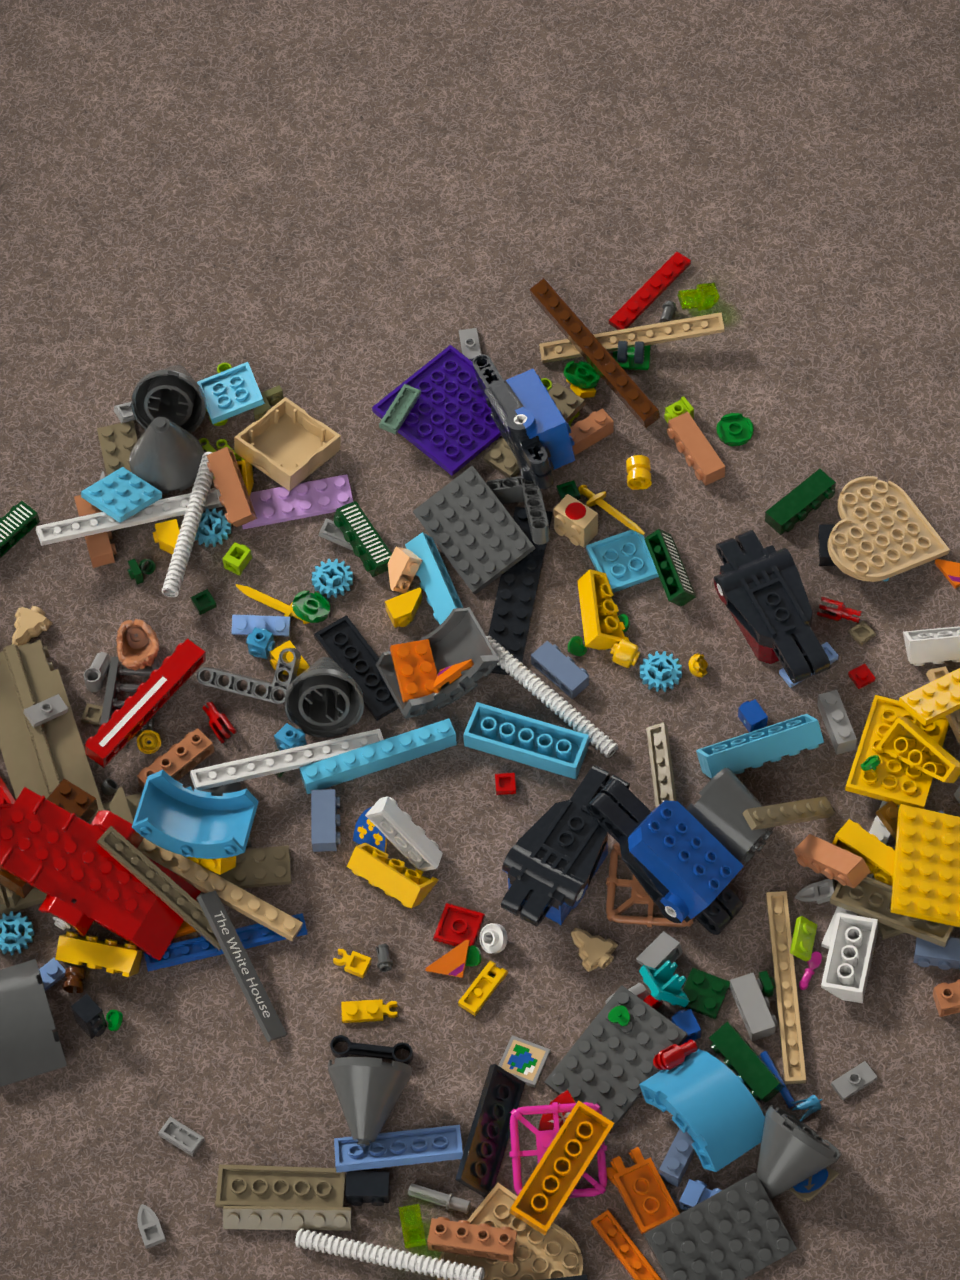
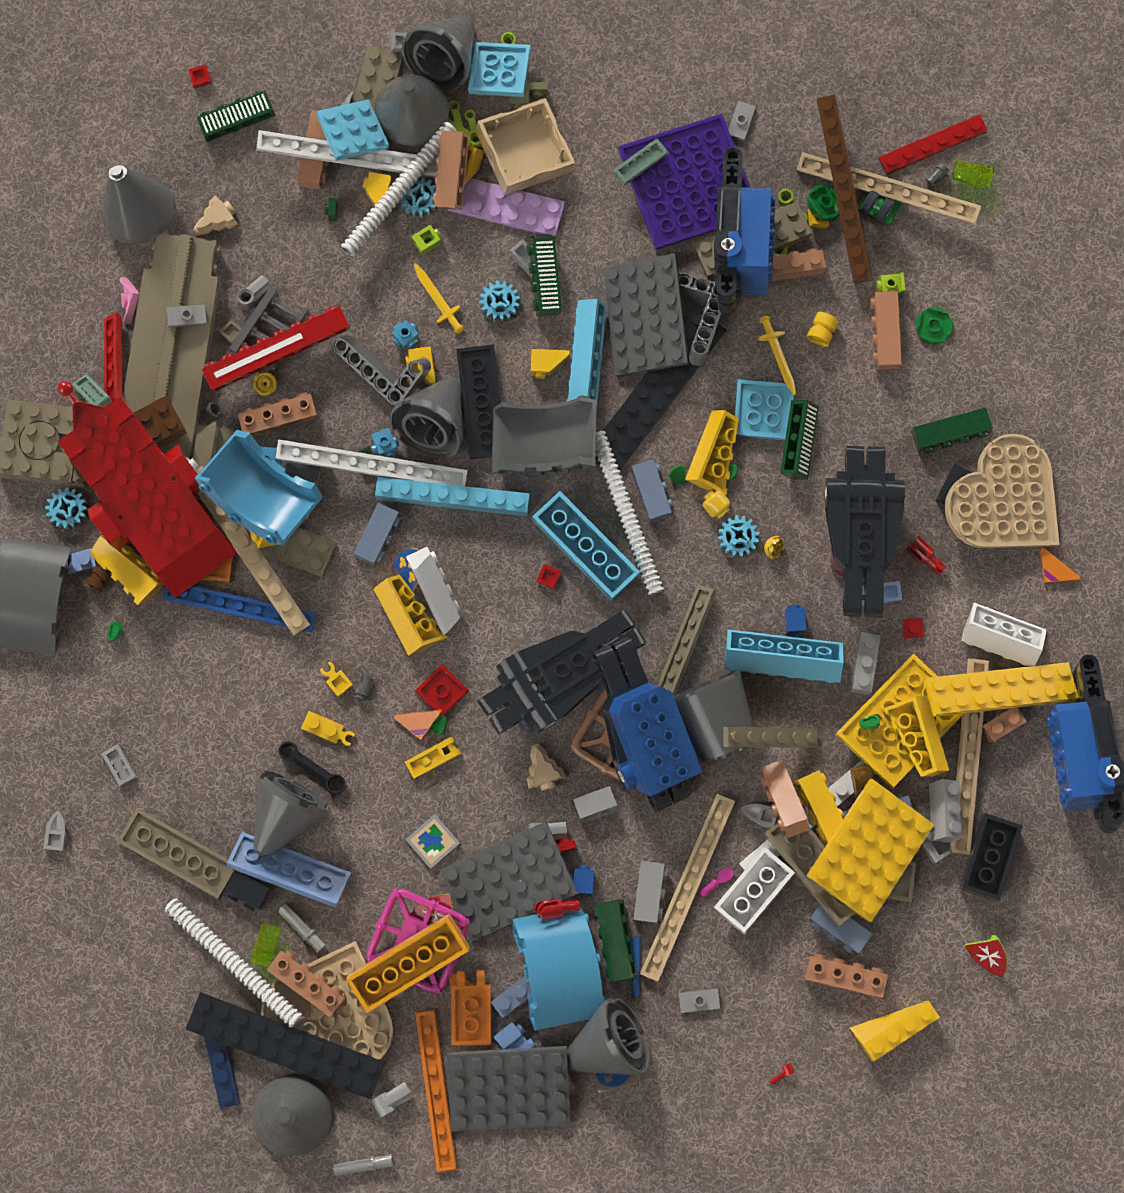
camera: 25 degrees right, 20 degrees up
(89, 1016) = (92, 622): black brick -> none
(138, 650) = (296, 286): nougat hair -> none
(150, 567) = (347, 210): dark green hinge -> none
(157, 882) = (202, 541): dark tan plate -> none
(203, 602) = (377, 268): dark green plate -> none
(218, 720) = (333, 395): red arm -> none
(241, 966) = (238, 640): dark grey tile -> none
(275, 624) = (412, 314): light blue plate -> none
(287, 1218) = (169, 883): dark tan plate -> none
(311, 607) = (467, 320): green tile -> none
(402, 569) = (563, 324): light nougat slope -> none
(414, 668) = (522, 433): orange plate -> none
(450, 674) = (548, 453): orange tile -> none
(489, 1131) = (371, 893): black plate -> none
(493, 938) = (463, 718): white plate -> none
(568, 488) = (750, 316): dark green plate -> none
(575, 521) = (739, 352): tan brick -> none
(619, 1015) = (529, 849): green piece -> none
(664, 984) = (582, 838): teal plate -> none
(705, 993) = (615, 857): dark green plate -> none
(767, 984) = (672, 877): dark green plate -> none
(803, 938) = (725, 852): lime plate -> none
(811, 1103) = (648, 1005): dark azure piece -> none
(862, 633) = (936, 586): dark tan tile -> none

